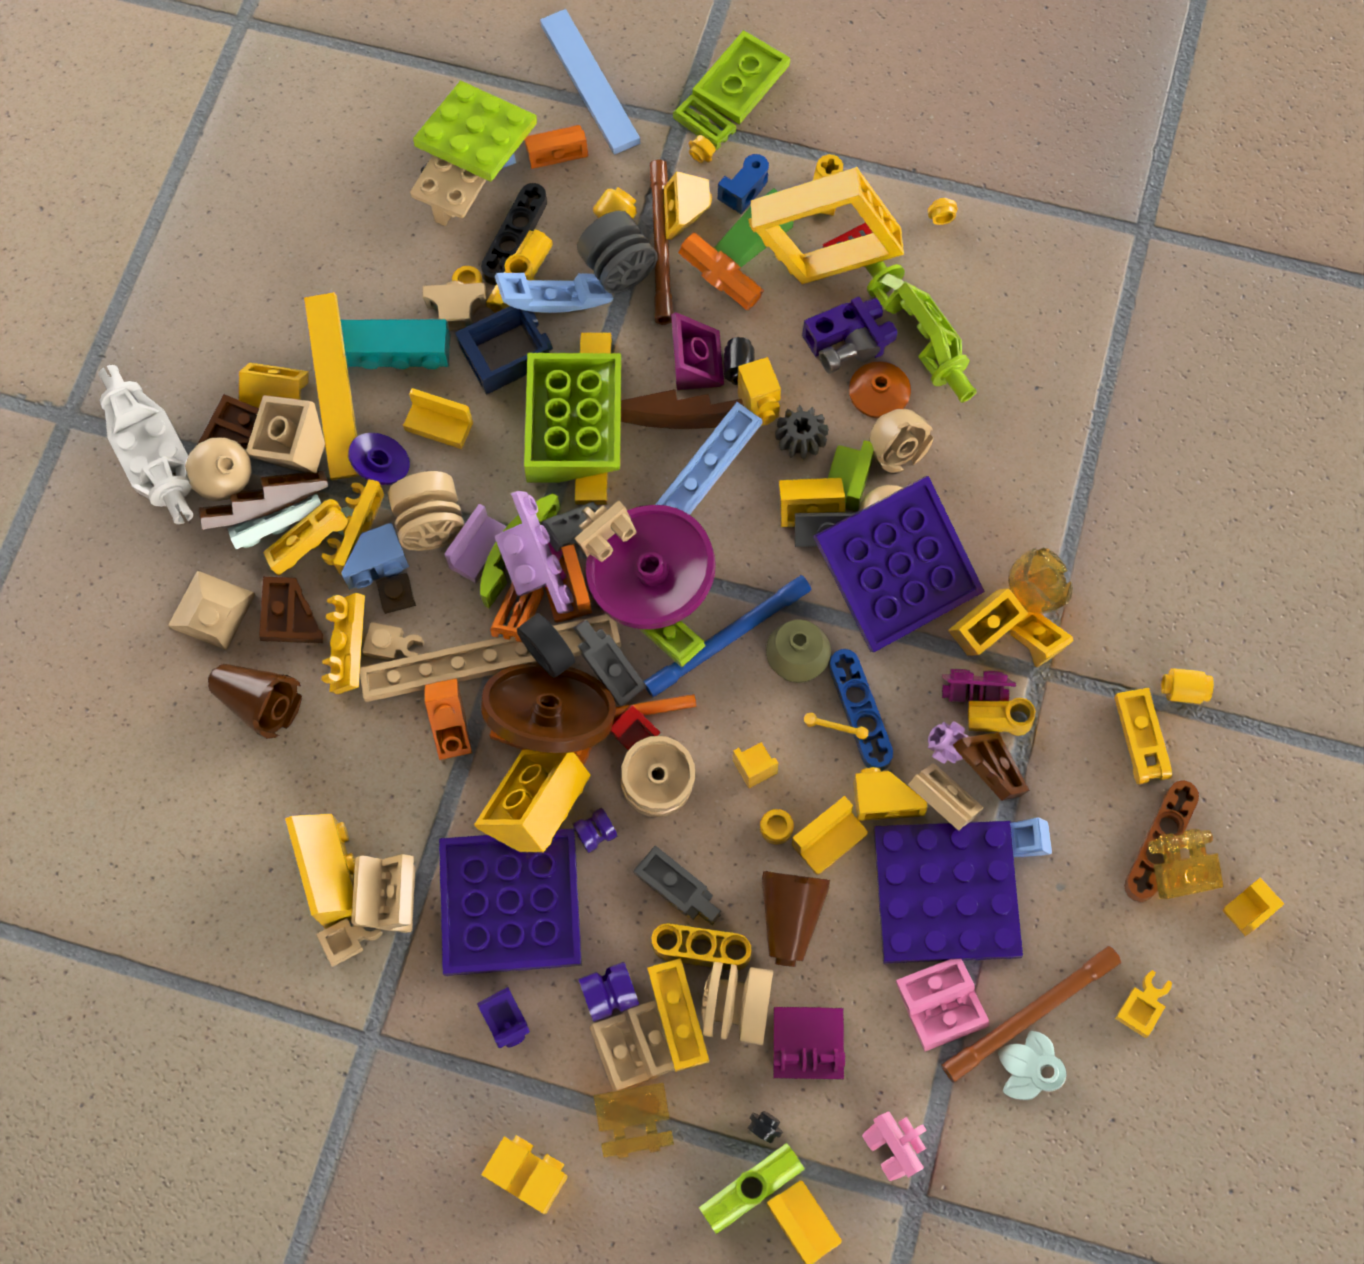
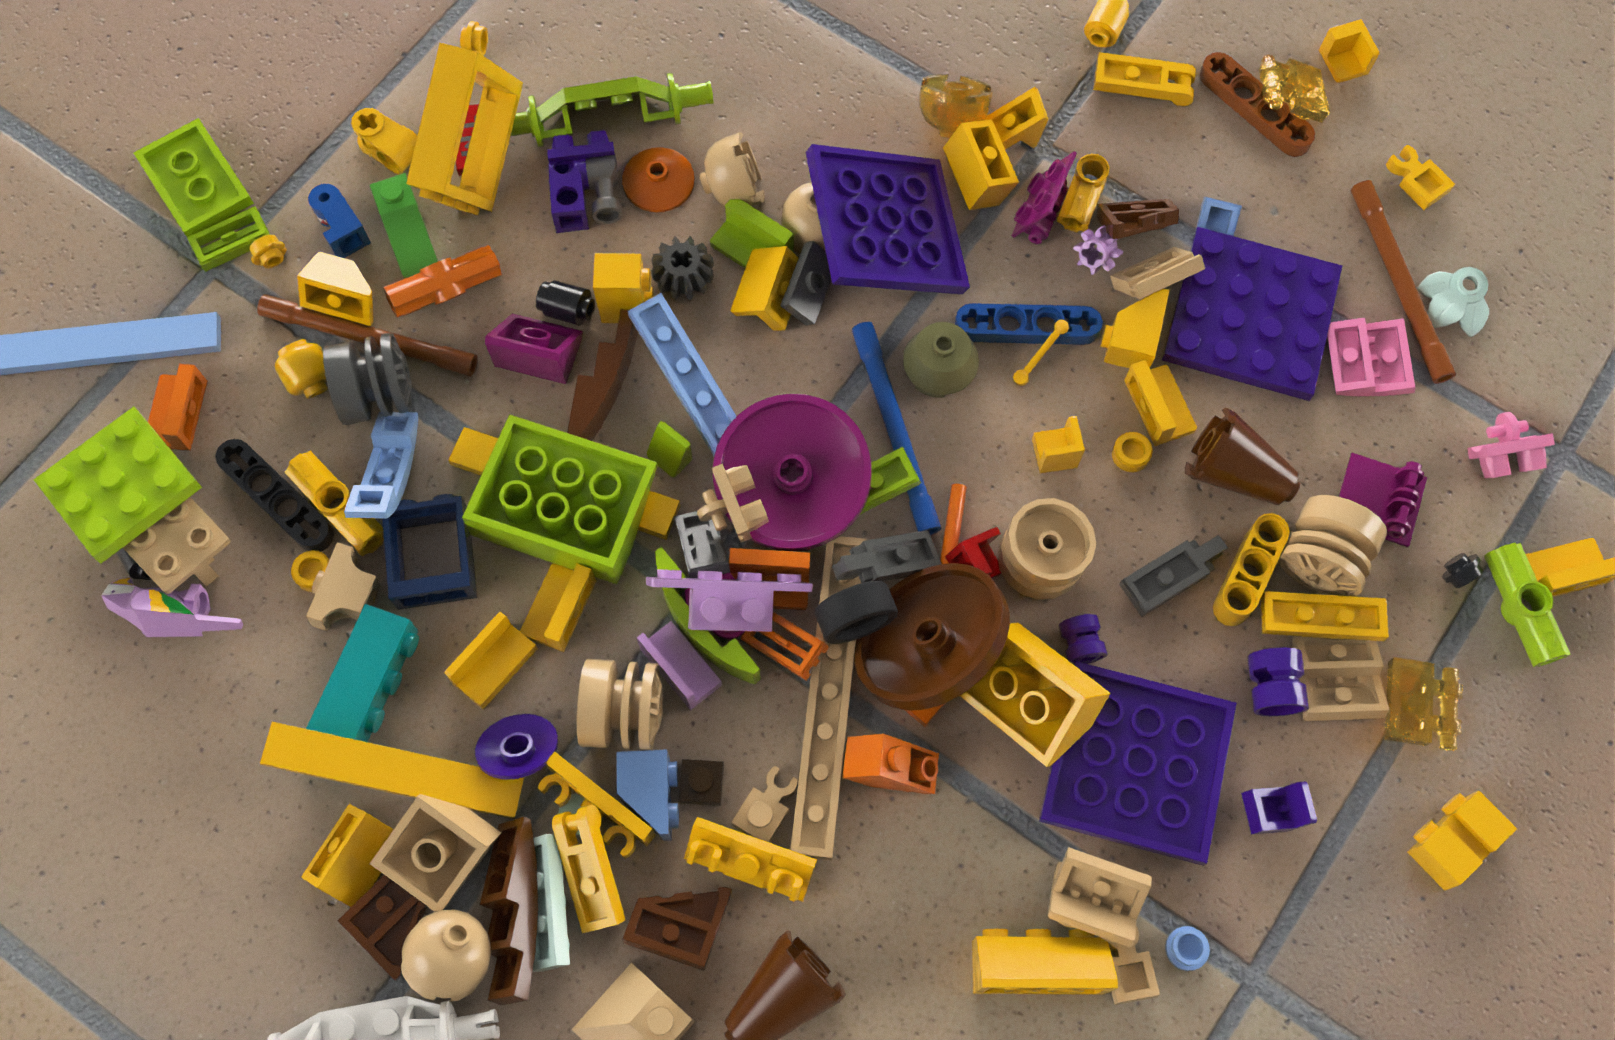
camera: 75 degrees left, 0 degrees up
(375, 980) = (1187, 948): none -> light blue plate
(403, 210) = (165, 614): none -> lavender animal
(494, 450) = (558, 605): none -> yellow panel
(645, 479) = (669, 450): none -> lime slope

